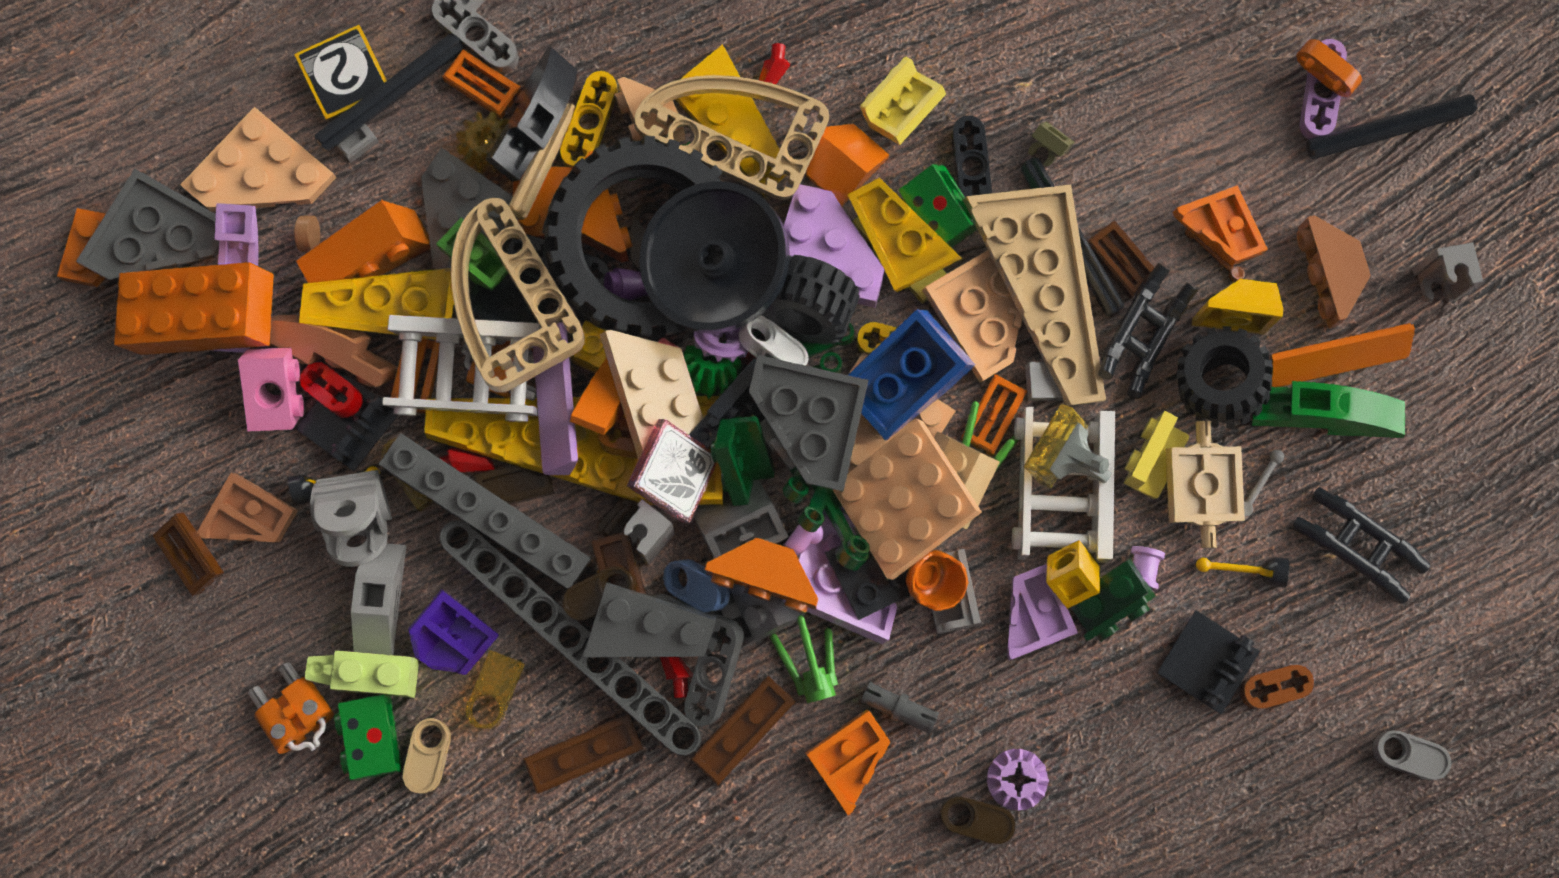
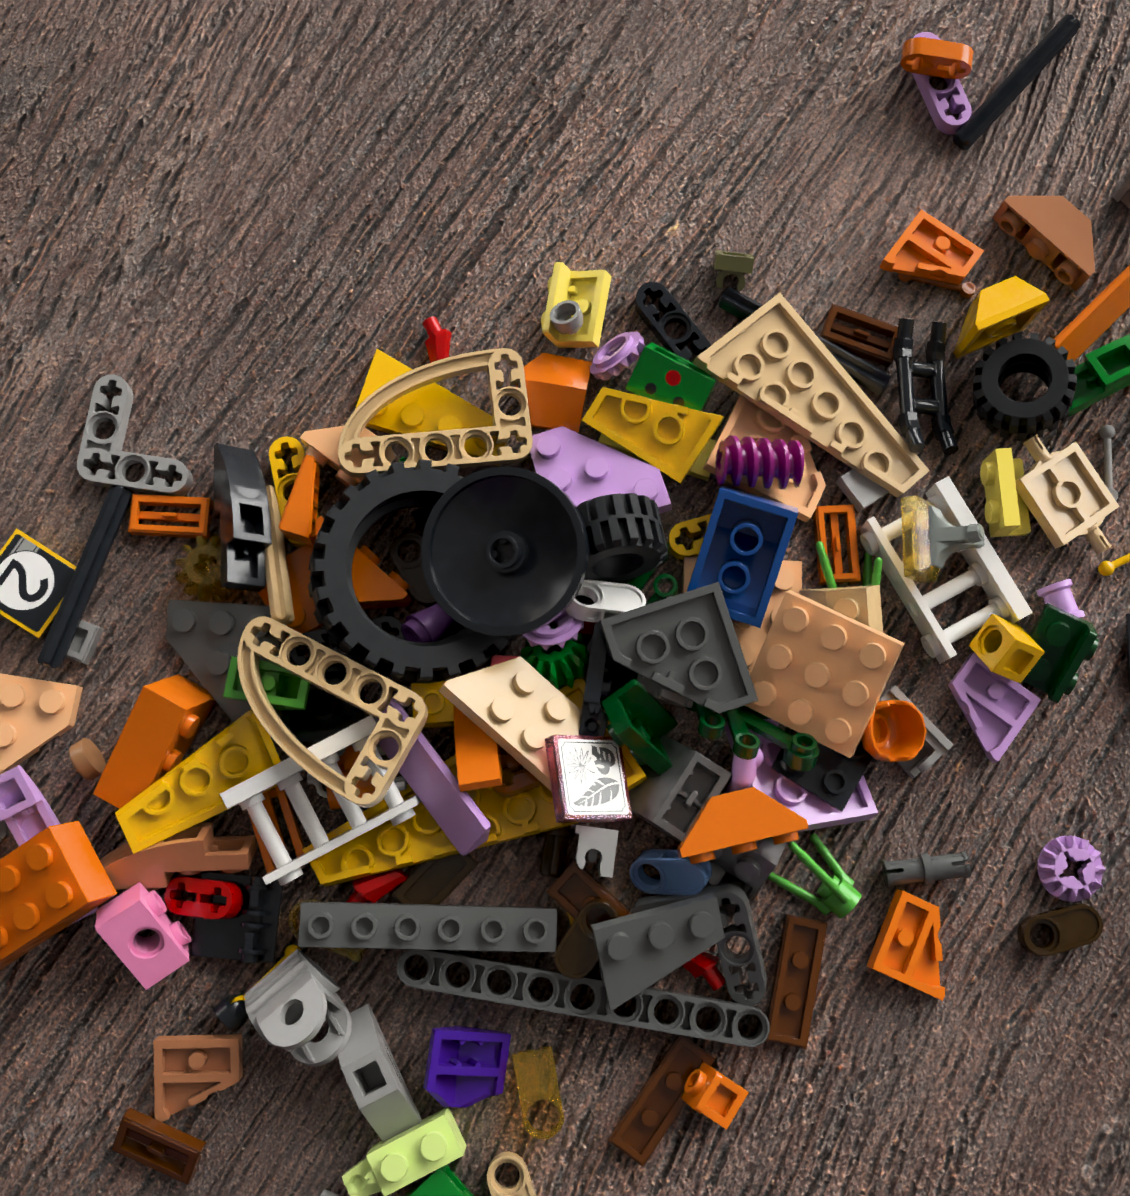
camera: 30 degrees left, 0 degrees up
(588, 131) = (302, 505): none -> orange slope
(624, 773) = (713, 1094): none -> orange bracket
(886, 106) = (562, 320): none -> light grey hinge
(909, 159) = (617, 355): none -> lavender gear
(965, 308) = (760, 460): none -> magenta piece

